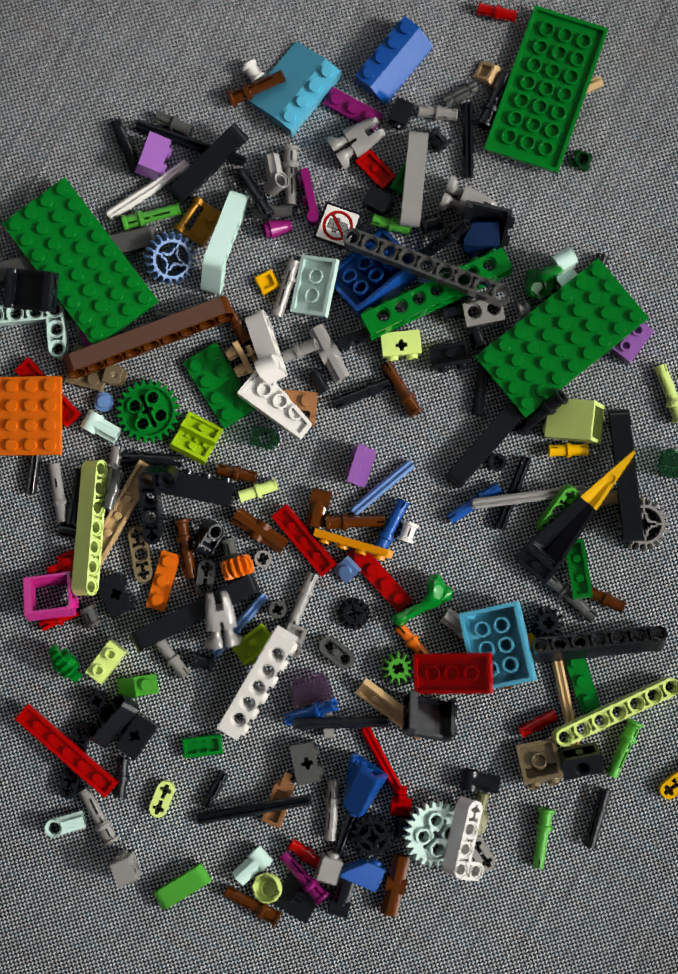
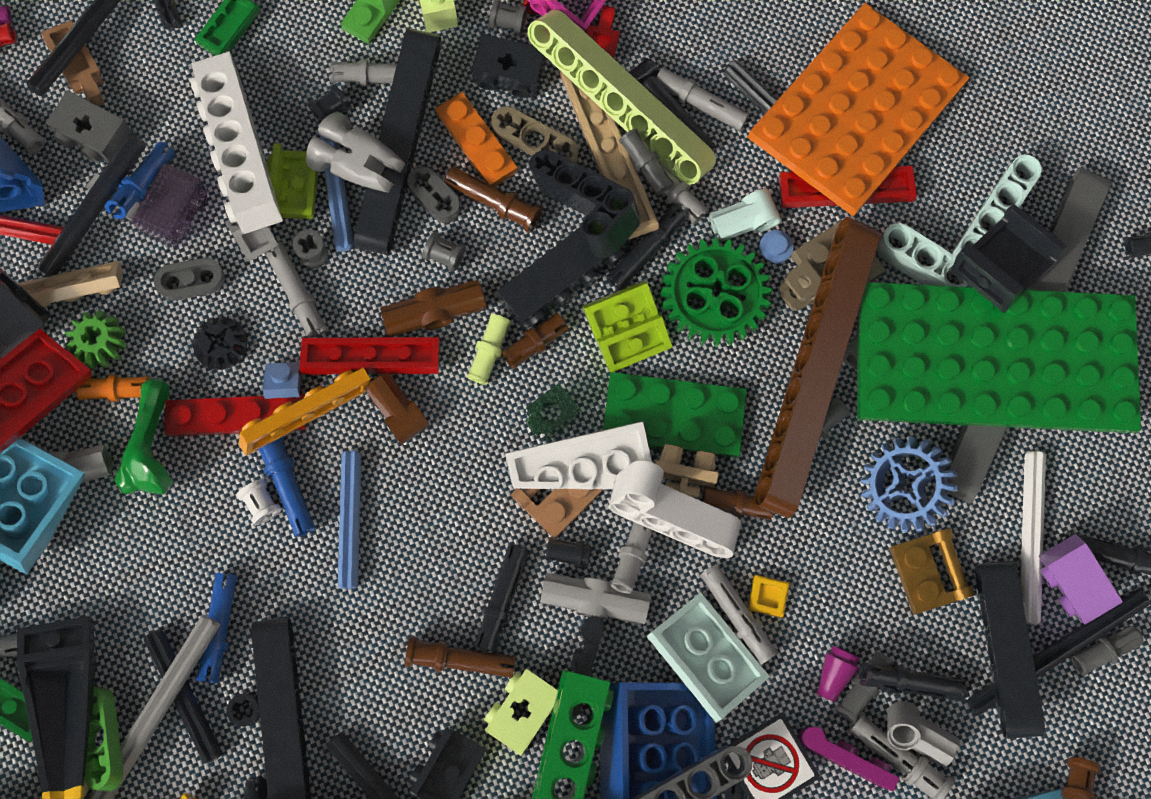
camera: 125 degrees right, 10 degrees down
(139, 218) = (997, 494): bright green pin -> none
(207, 540) = (478, 228): black piece -> none
(222, 241) = (879, 575): light aqua beam -> none
(237, 567) = (408, 238): orange gear -> none
(268, 562) = (388, 275): light grey bush -> none
(344, 522) = (346, 429): reddish brown pin -> none
(361, 466) = (406, 521): medium lavender bracket -> none

